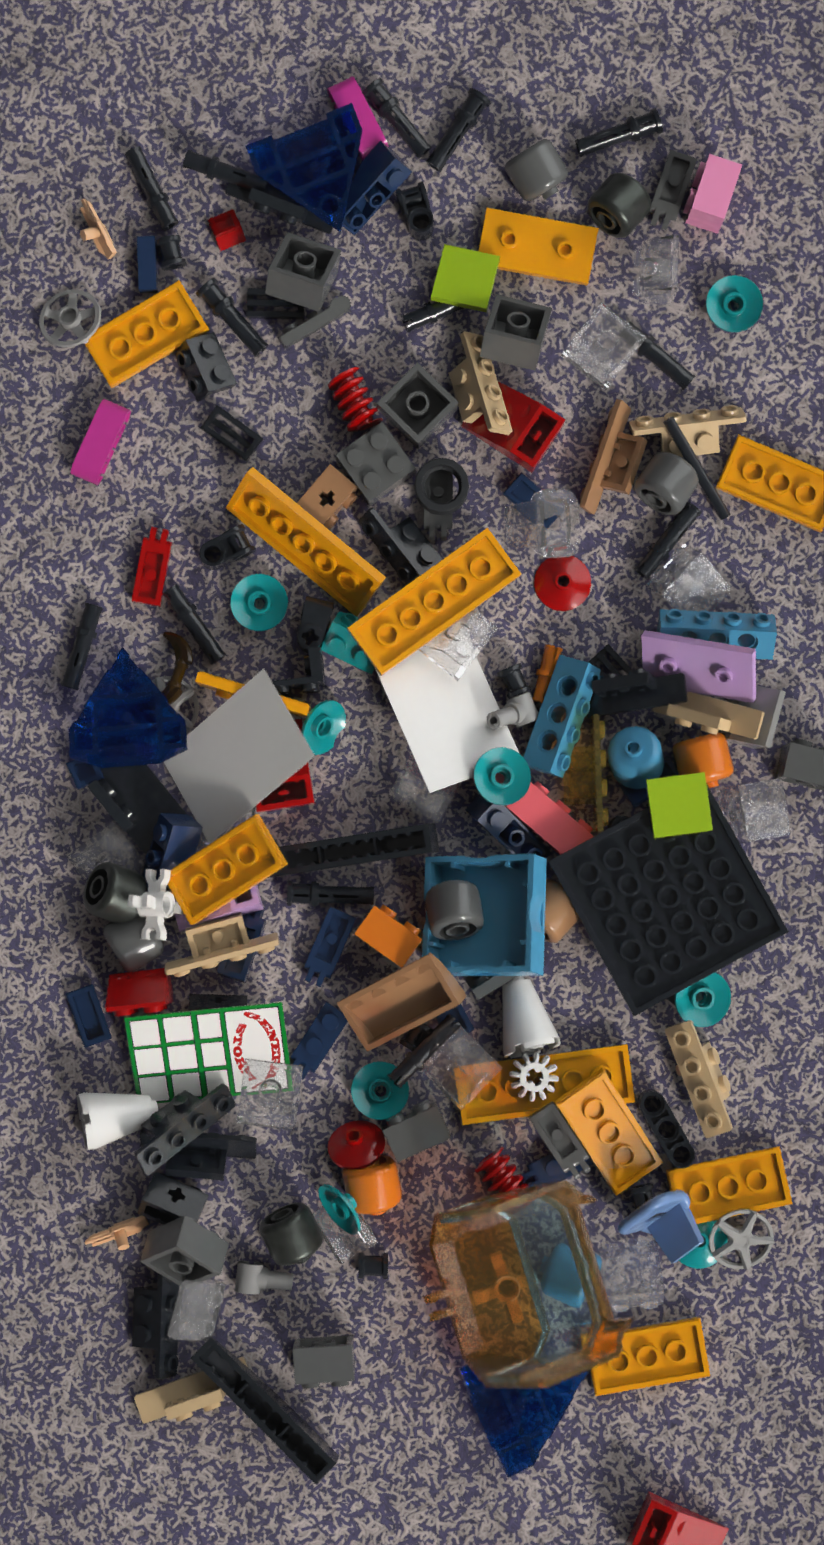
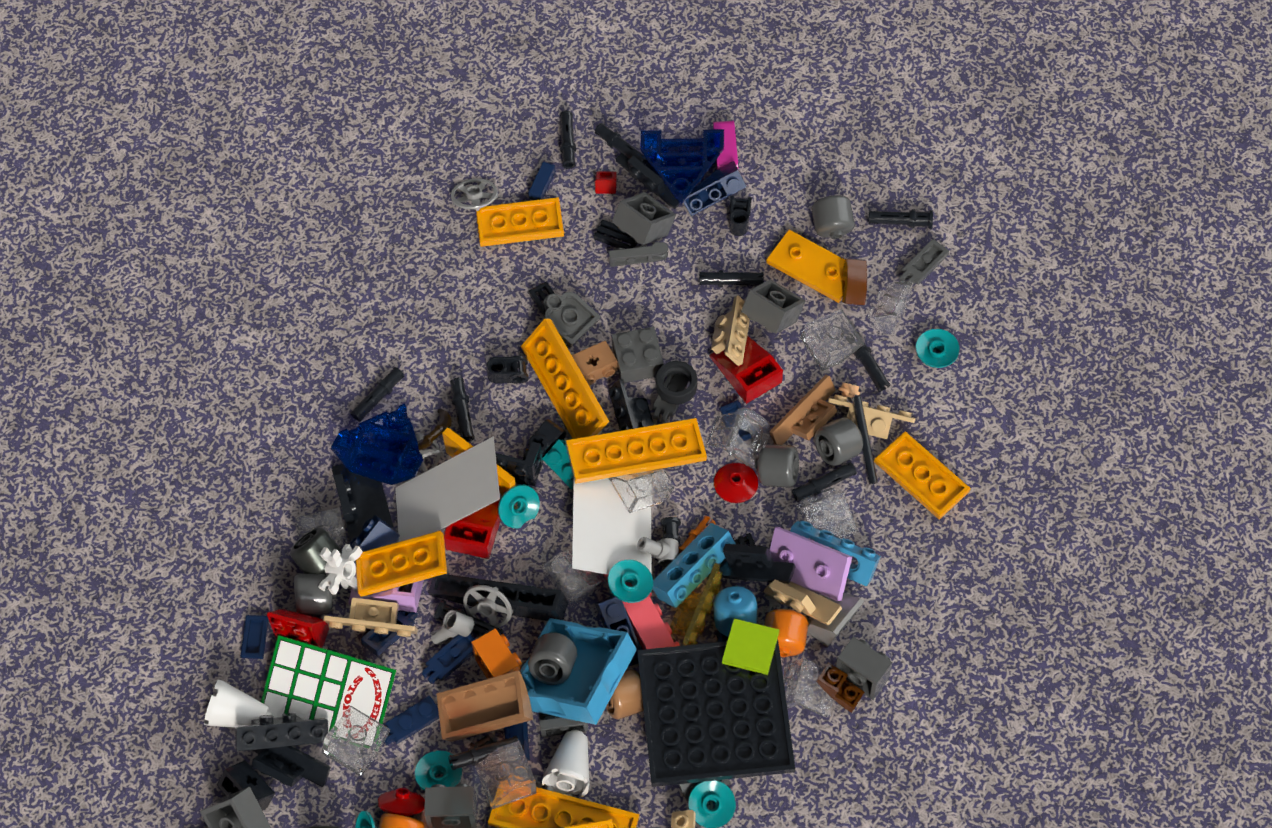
camera: 25 degrees right, 25 degrees down
(83, 773) = (334, 468): dark blue tile -> none
(96, 231) = (519, 152): light nougat piece -> none
(99, 441) = (455, 273): dark pink beam -> none
(119, 1232) = (196, 796): light nougat piece -> none
(152, 569) = (451, 364): red hinge -> none
(171, 252) = (561, 180): black bush -> none
(205, 366) = (550, 254): black bracket -> none
(223, 307) = (580, 225): black pin -> none
(259, 587) = (513, 403): teal dish -> none
(268, 445) = (570, 316): none -> dark grey plate
(317, 913) = (453, 625): none -> light grey pin
(346, 872) = (487, 606): none -> light grey wheel
(352, 401) = (641, 308): red piece -> none
(389, 105) = (749, 149): black pin -> none
(417, 405) = (684, 328): dark grey brick -> none
(464, 119) = (798, 172): black pin -> none
(465, 278) = (753, 263): lime tile -> none
(538, 1067) = (566, 807): white gear -> none
(600, 250) = (855, 281): none -> reddish brown slope
(607, 546) = (777, 465): none -> dark grey head
(619, 205) = (883, 257): pearl dark grey head -> none
(650, 405) = (849, 390): none -> light nougat plate
(714, 191) = (950, 272): bright pink brick -> none
(791, 799) = (838, 688): none -> reddish brown slope

